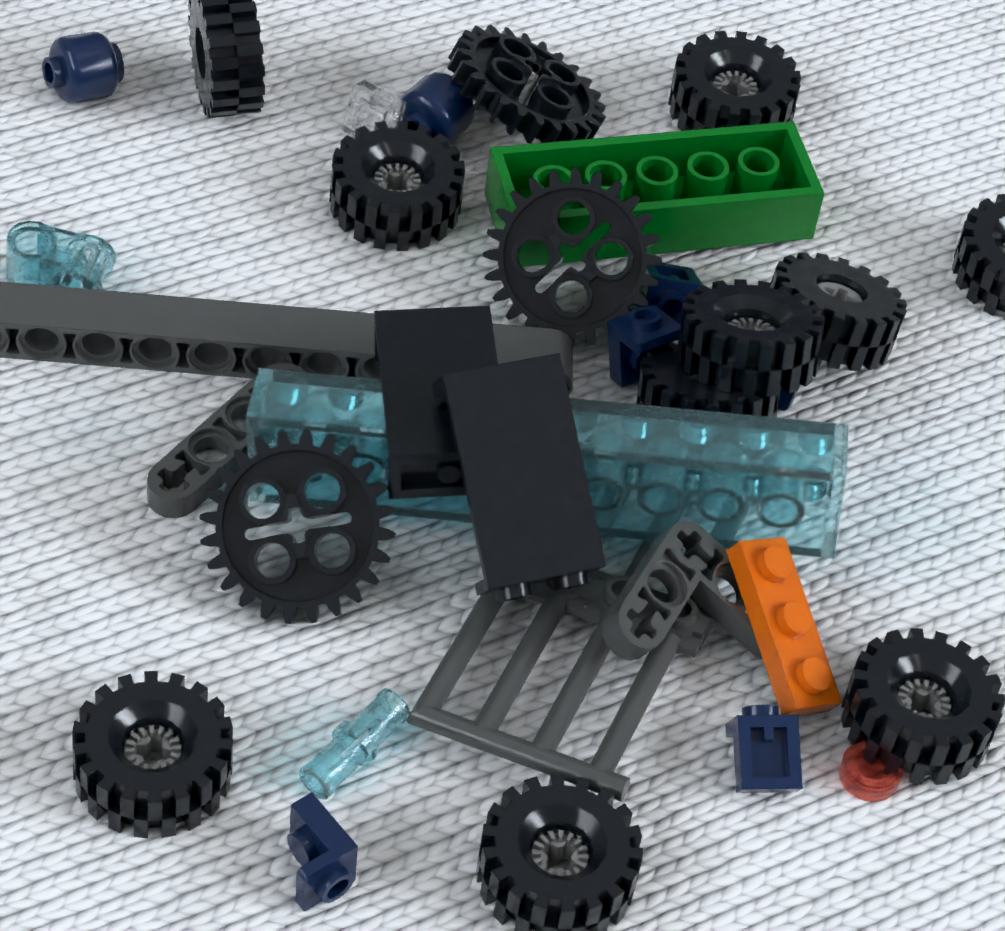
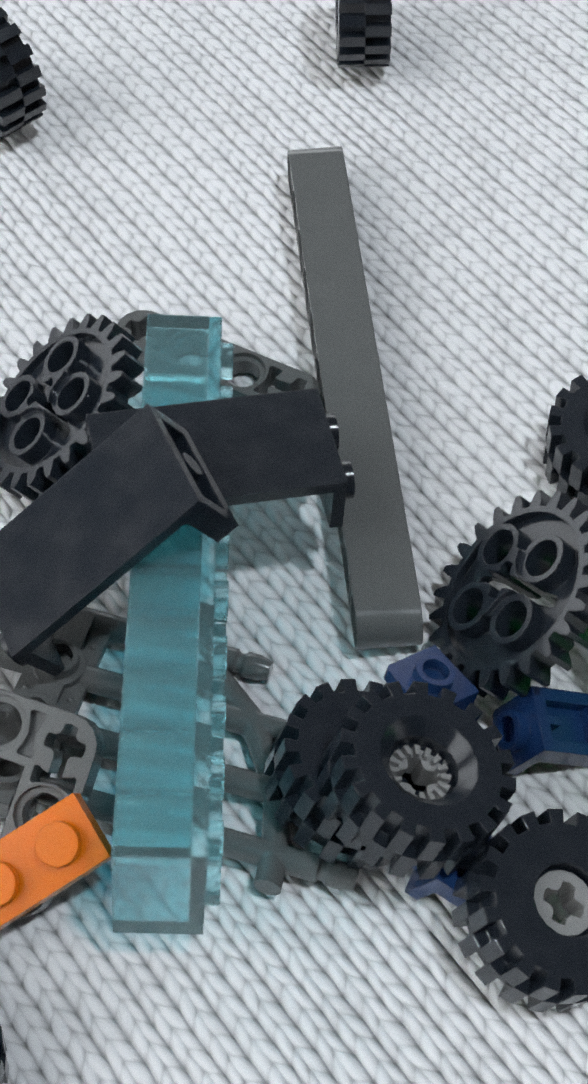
camera: 90 degrees right, 5 degrees up
(56, 257) = (401, 200): clear light blue piece -> none

